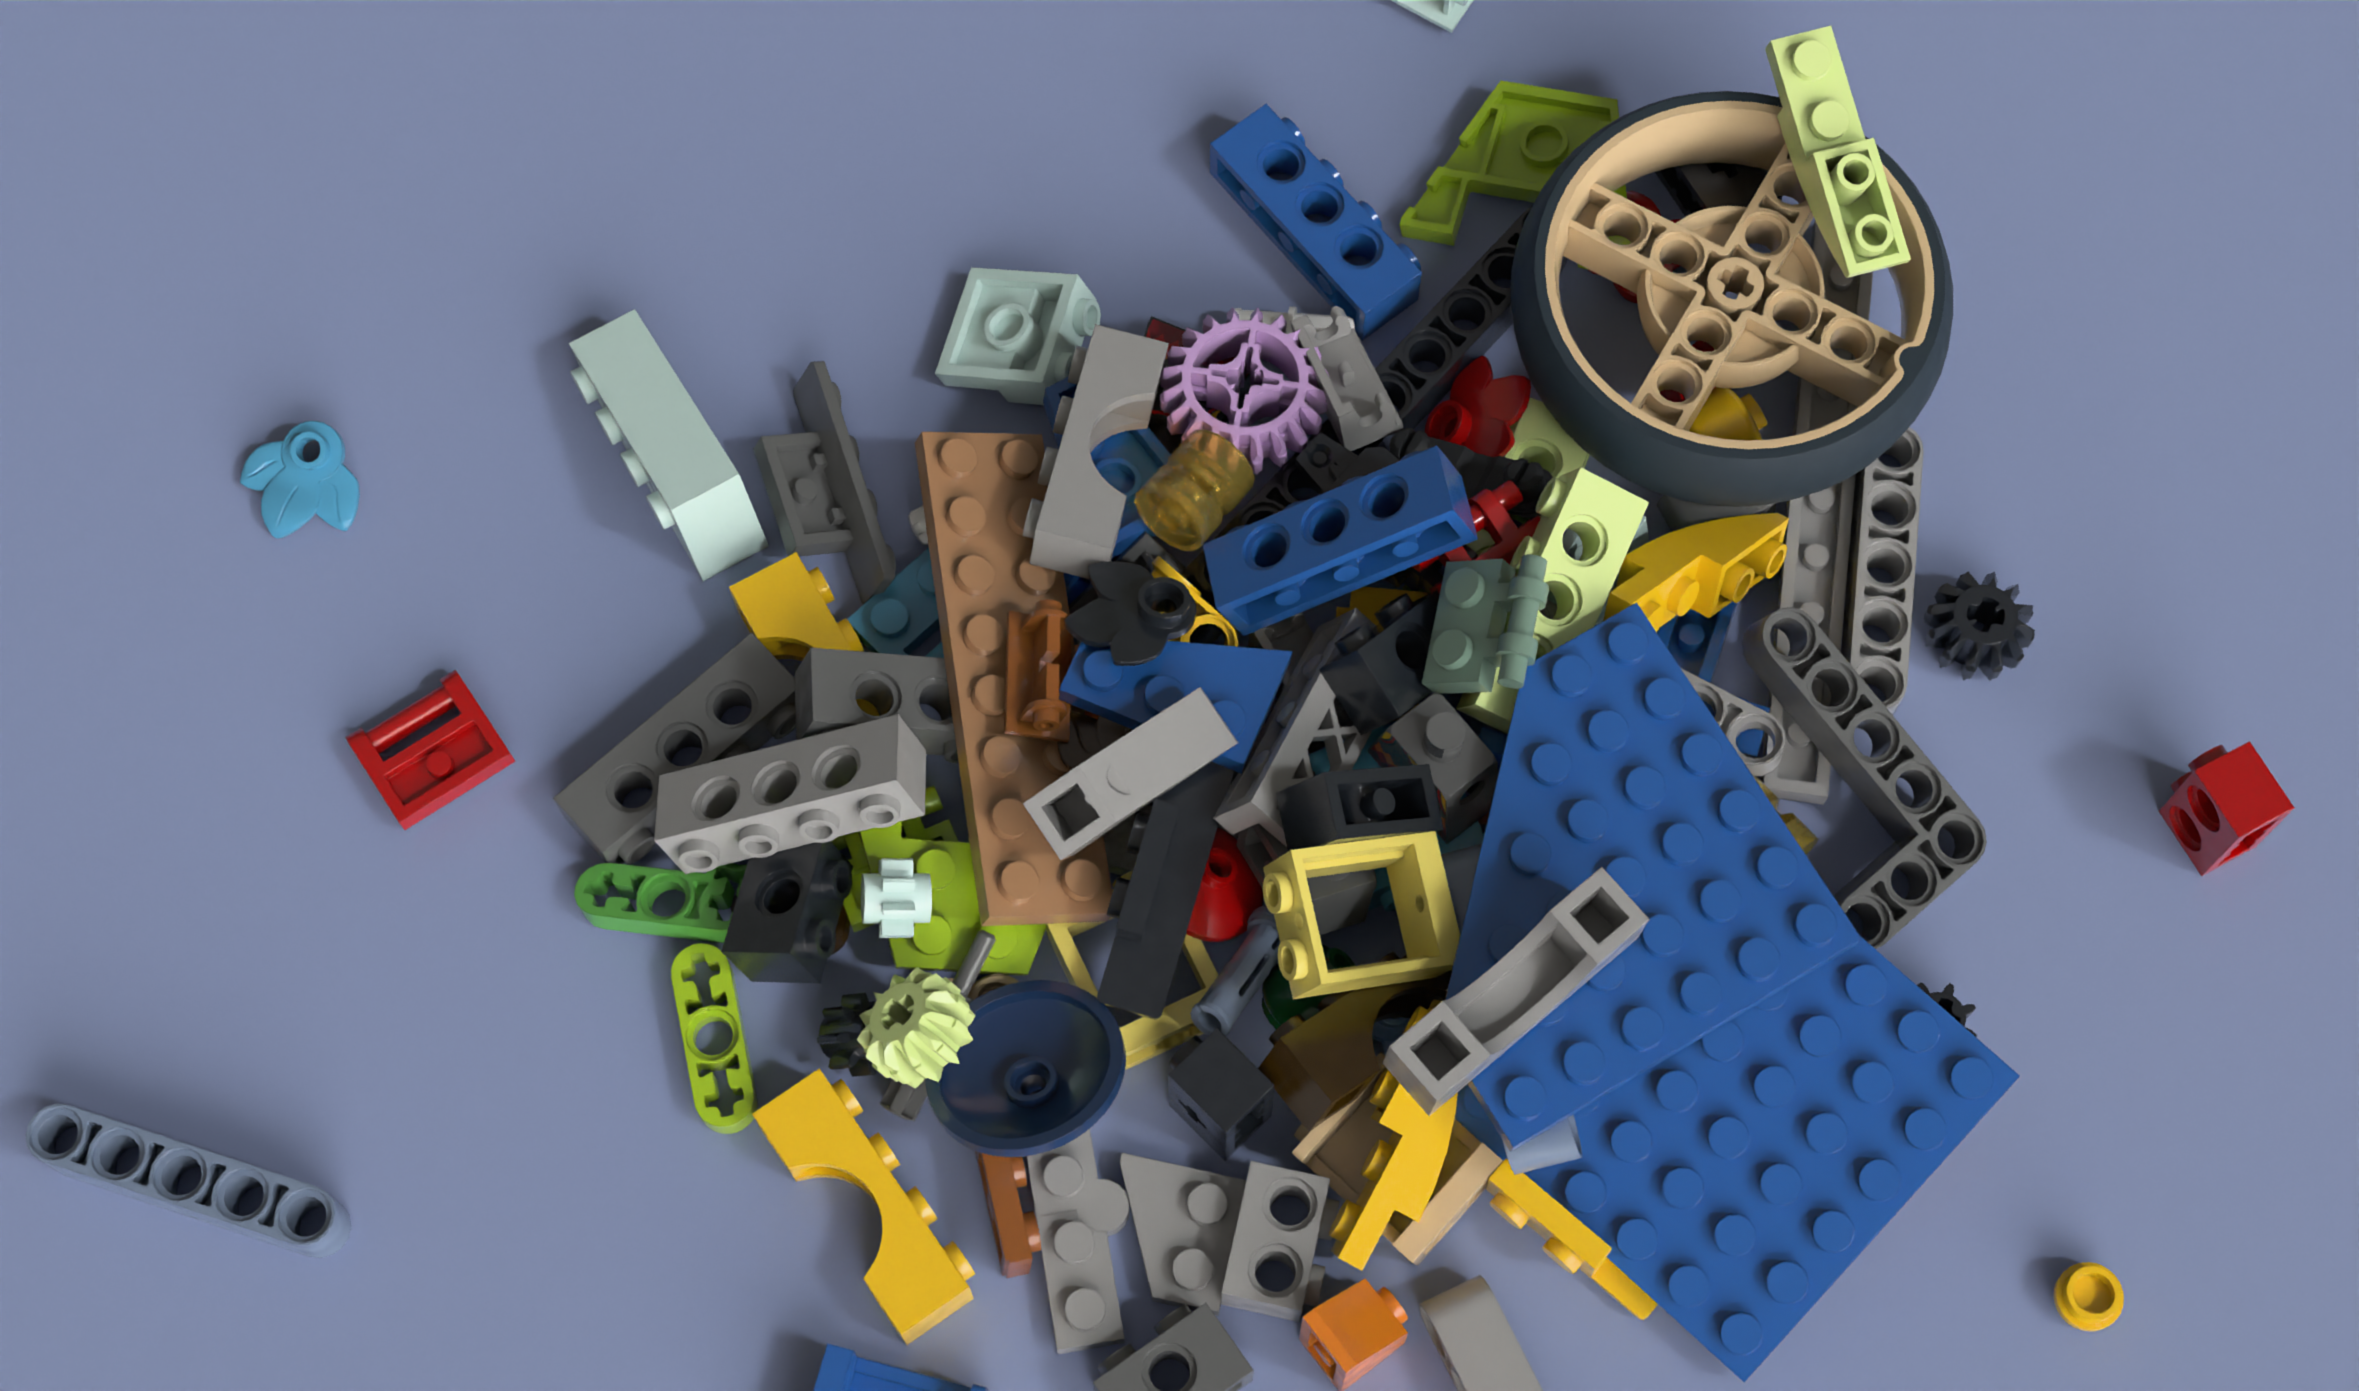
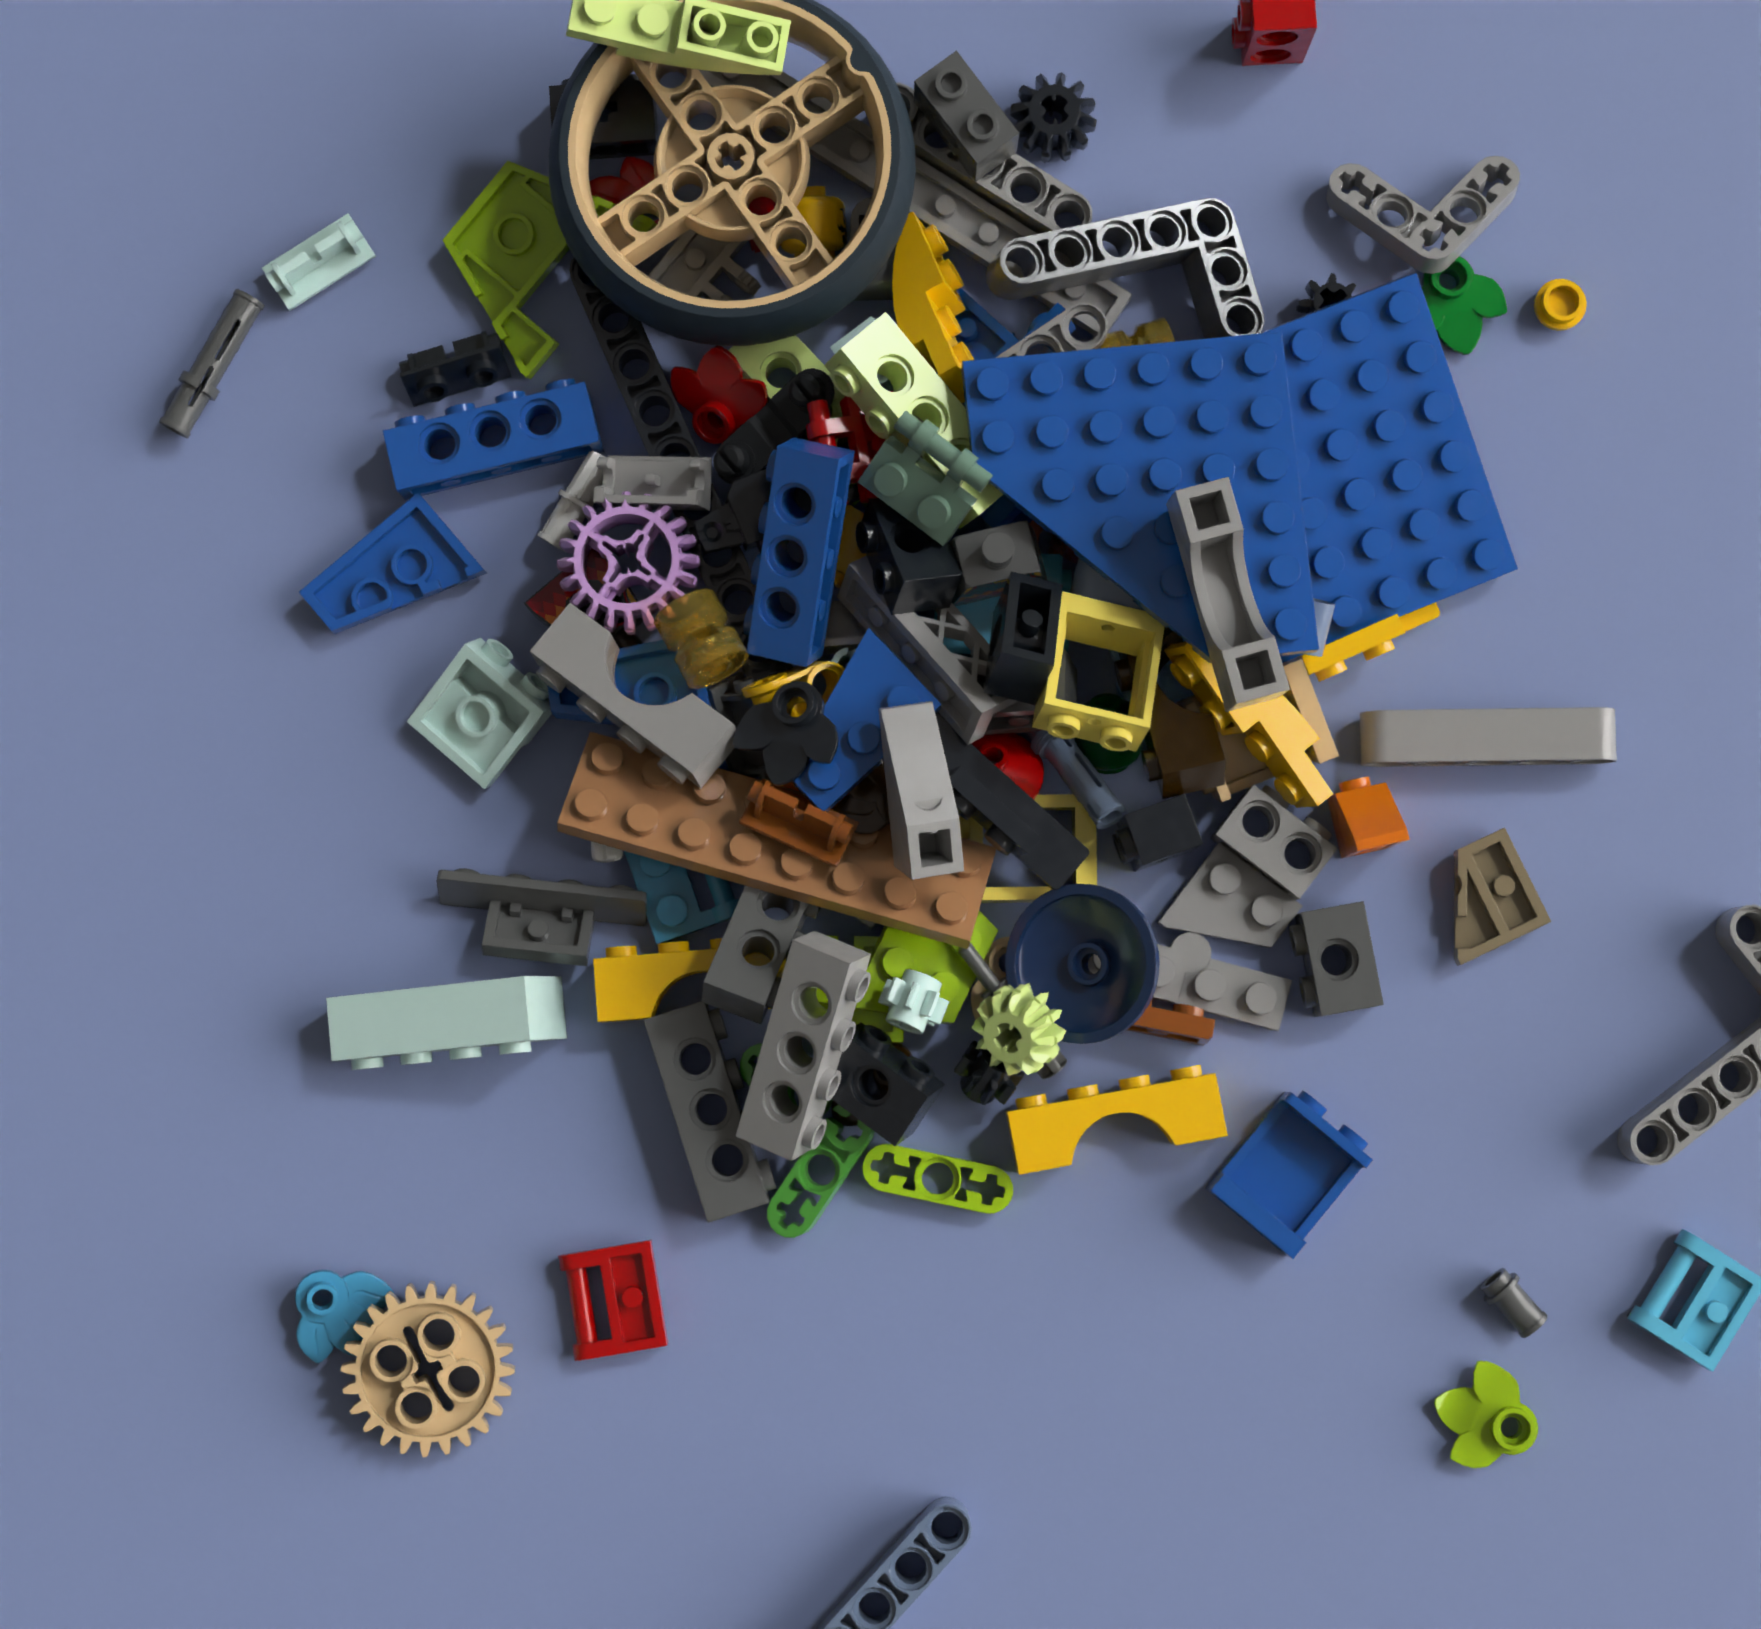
camera: 65 degrees left, 15 degrees up
(233, 558) = (383, 1390): none -> tan gear
(1128, 184) = (390, 568): none -> blue wing
(1360, 147) = (433, 376): none -> black hinge
(1609, 335) = (697, 262): none -> light grey hinge
(1920, 514) = (965, 116): none -> dark grey brick
(2010, 1176) = (1460, 310): none -> green plate
(2089, 1087) = (1421, 225): none -> light grey beam

